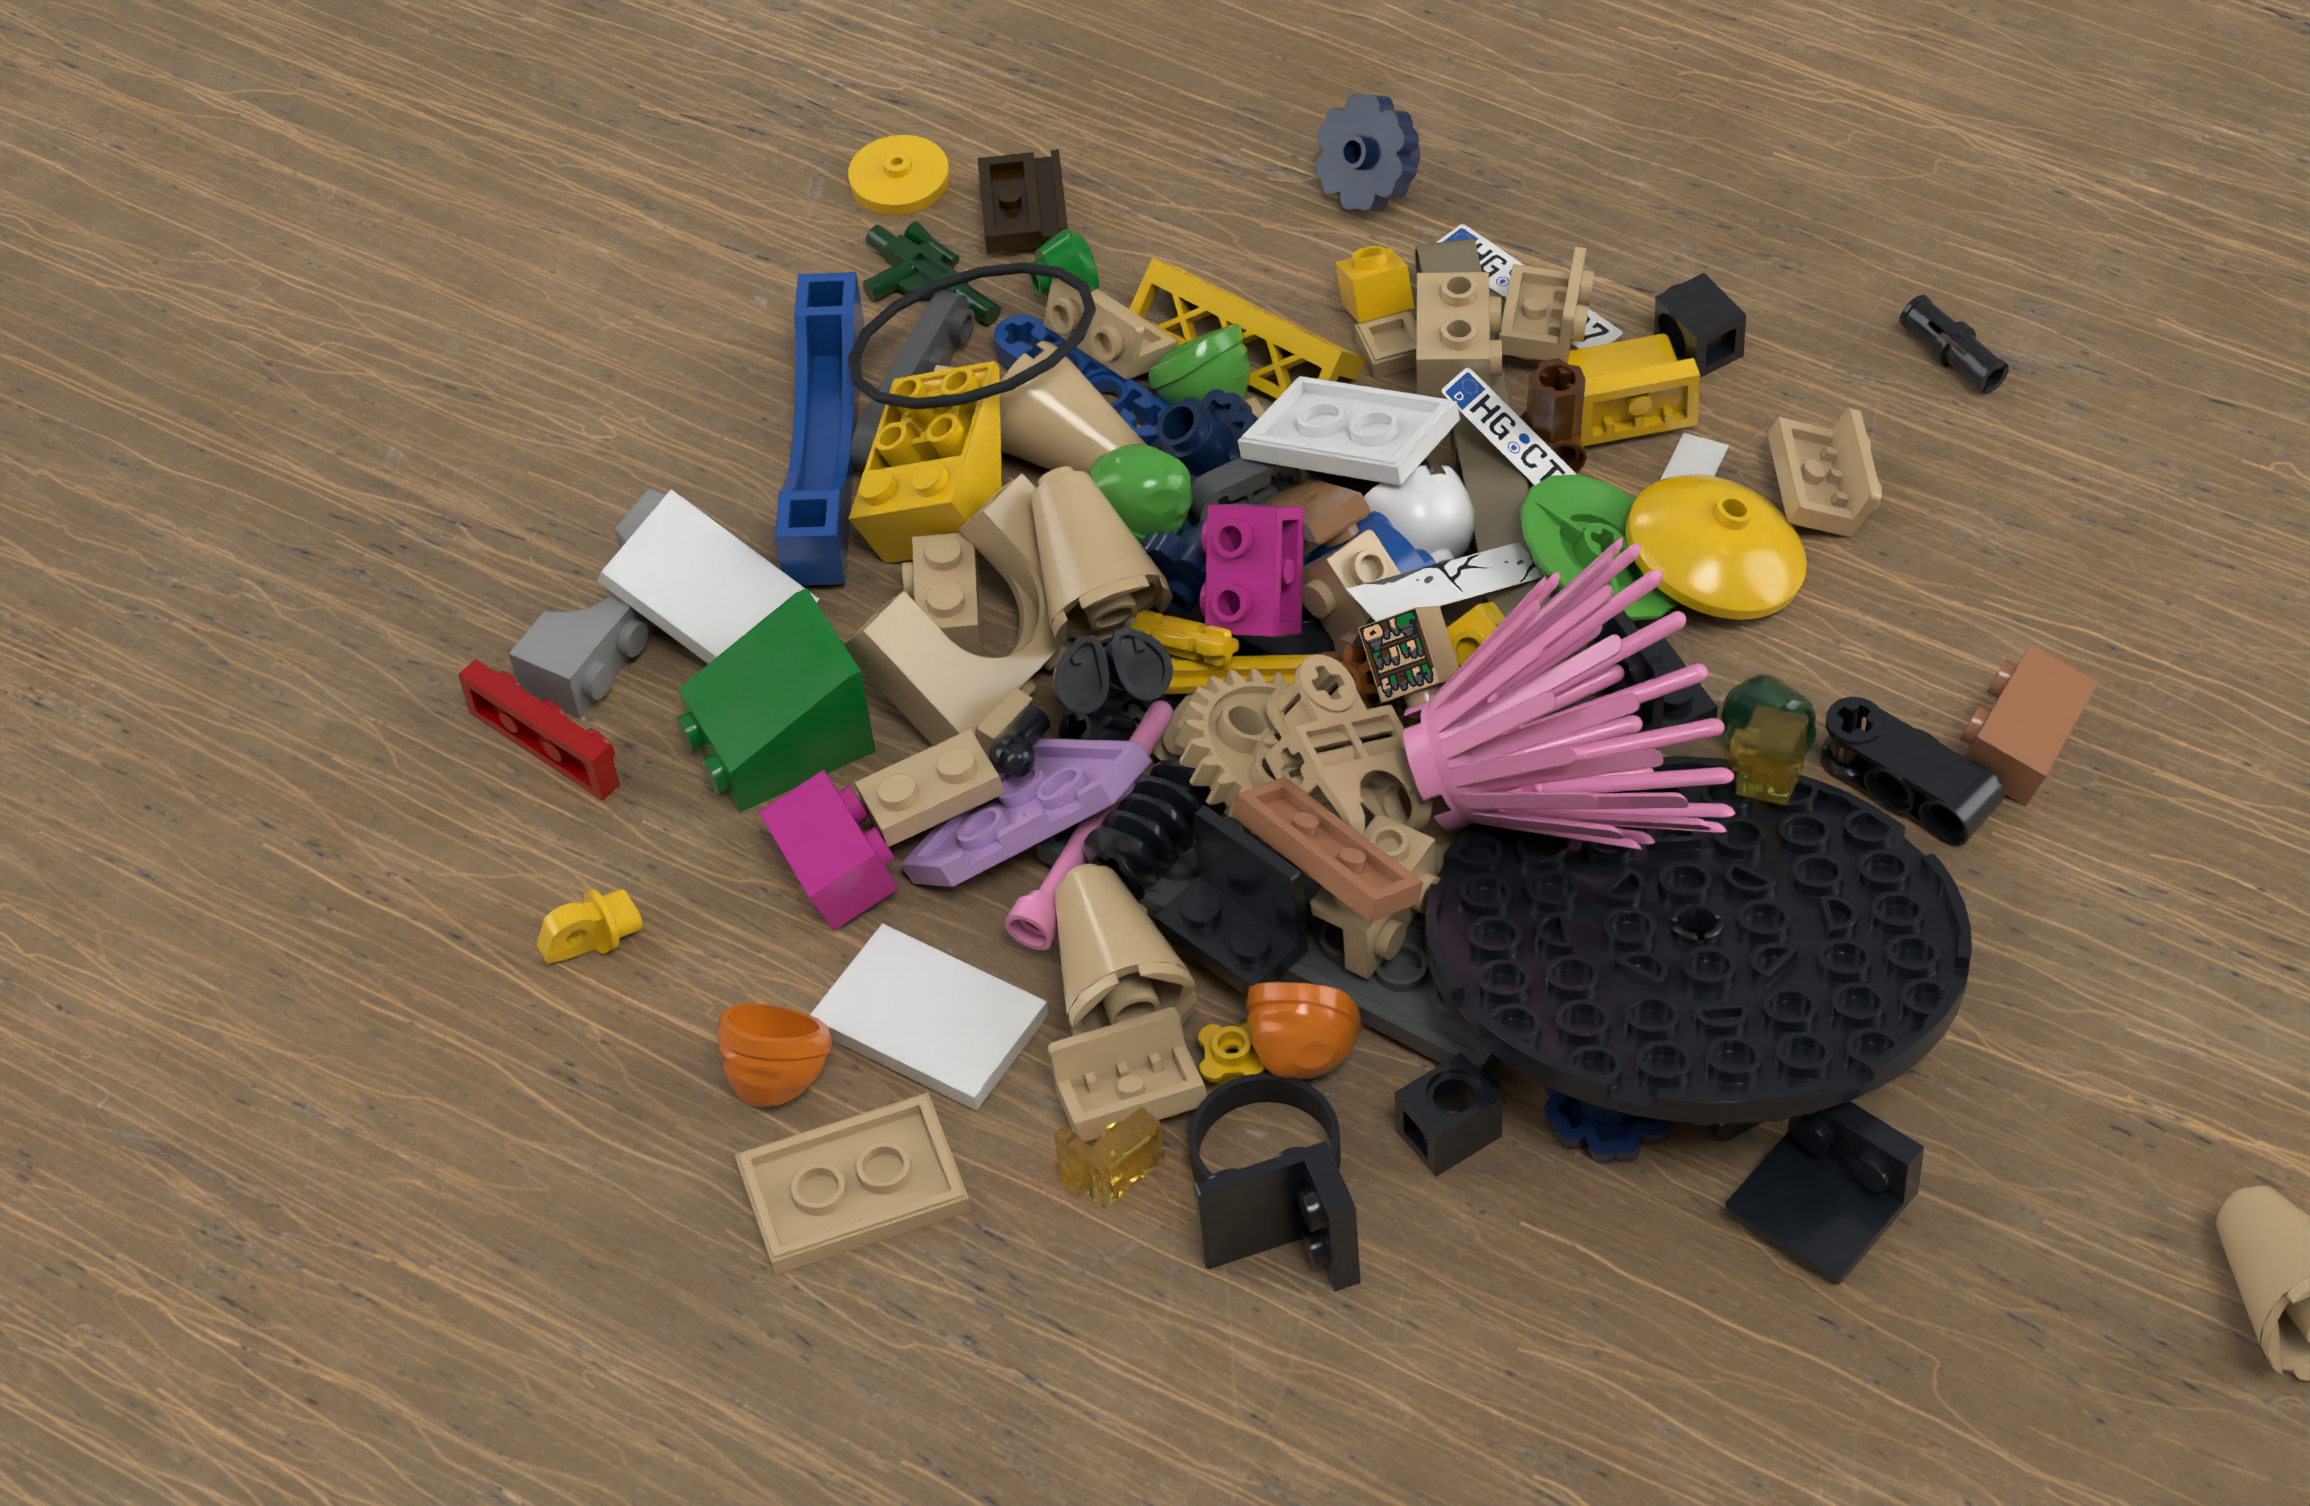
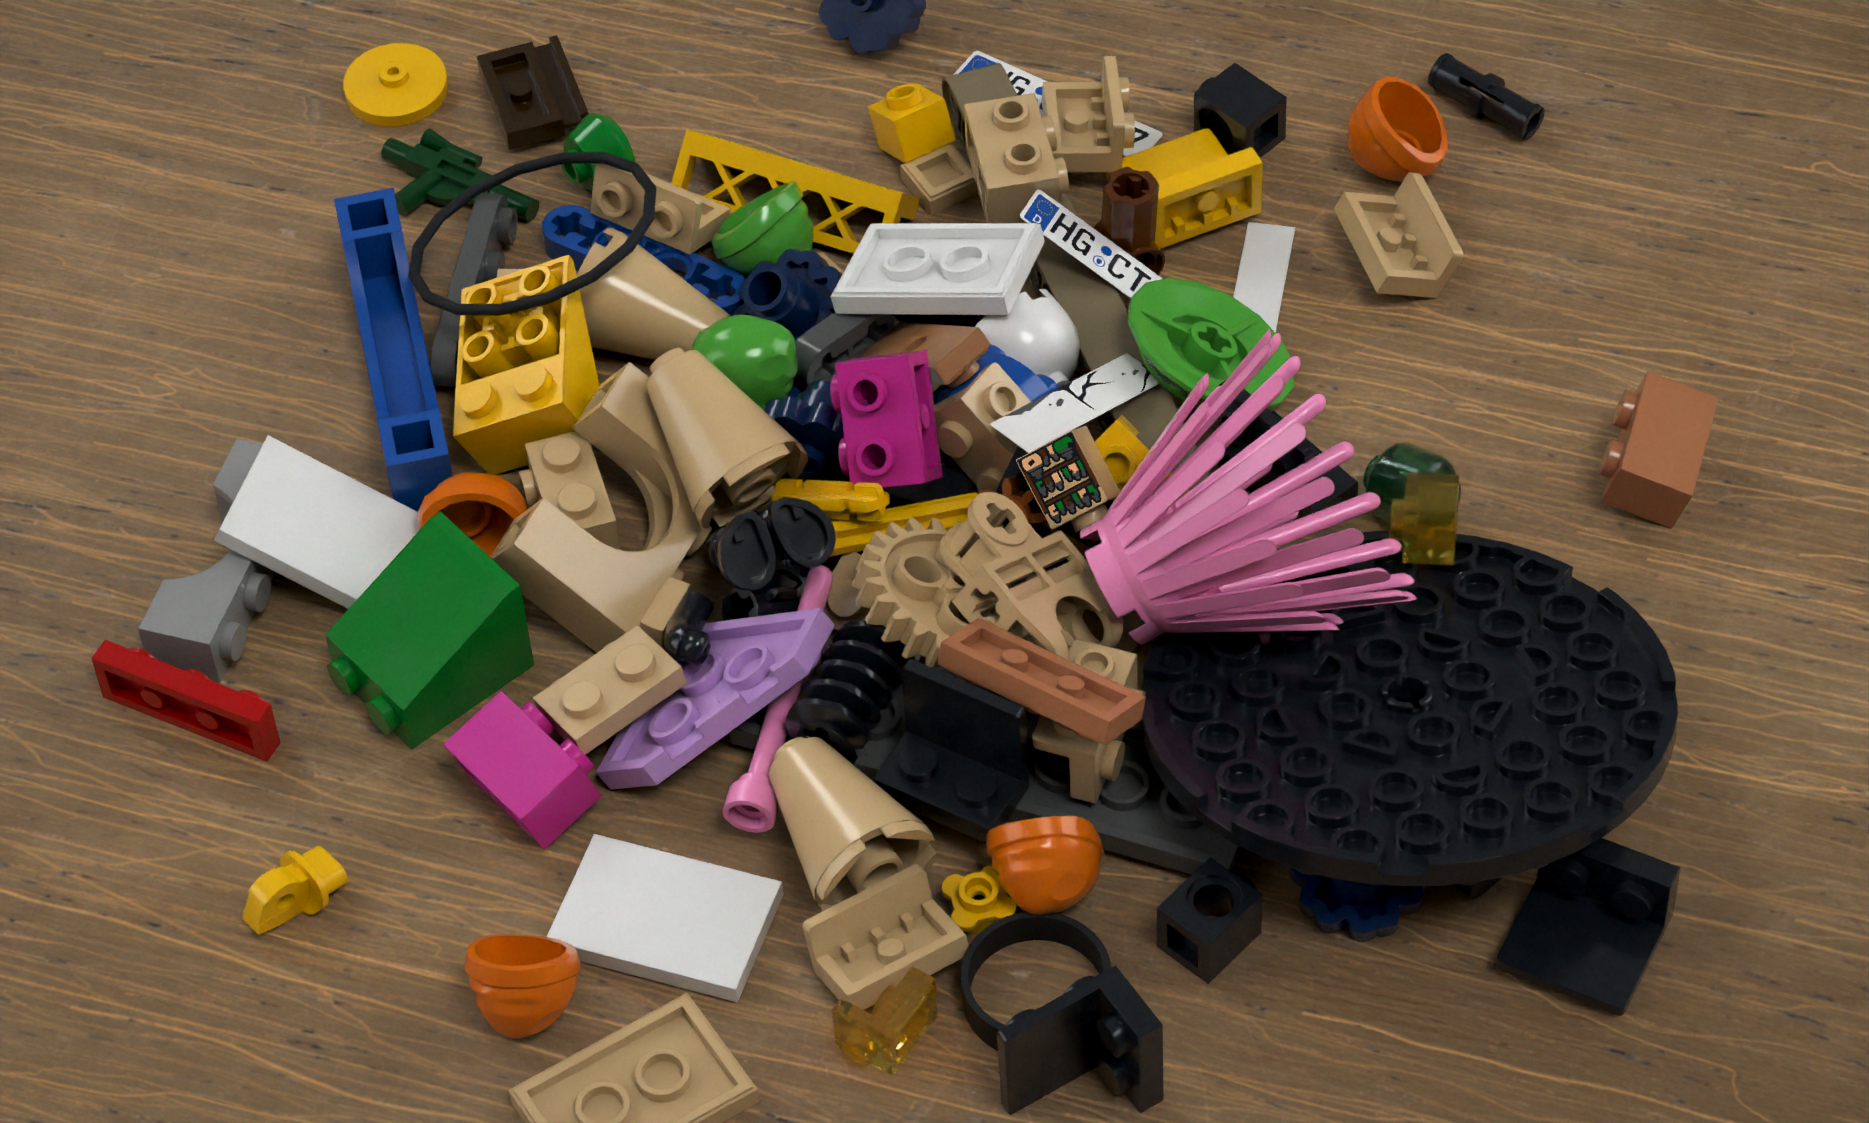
camera: 15 degrees left, 0 degrees up
(850, 590) = (477, 504): none -> orange hat
(1717, 546) = (1325, 317): yellow dish -> none
(1850, 364) = (1396, 131): none -> orange hat
(1909, 771) = (1557, 513): black piece -> none

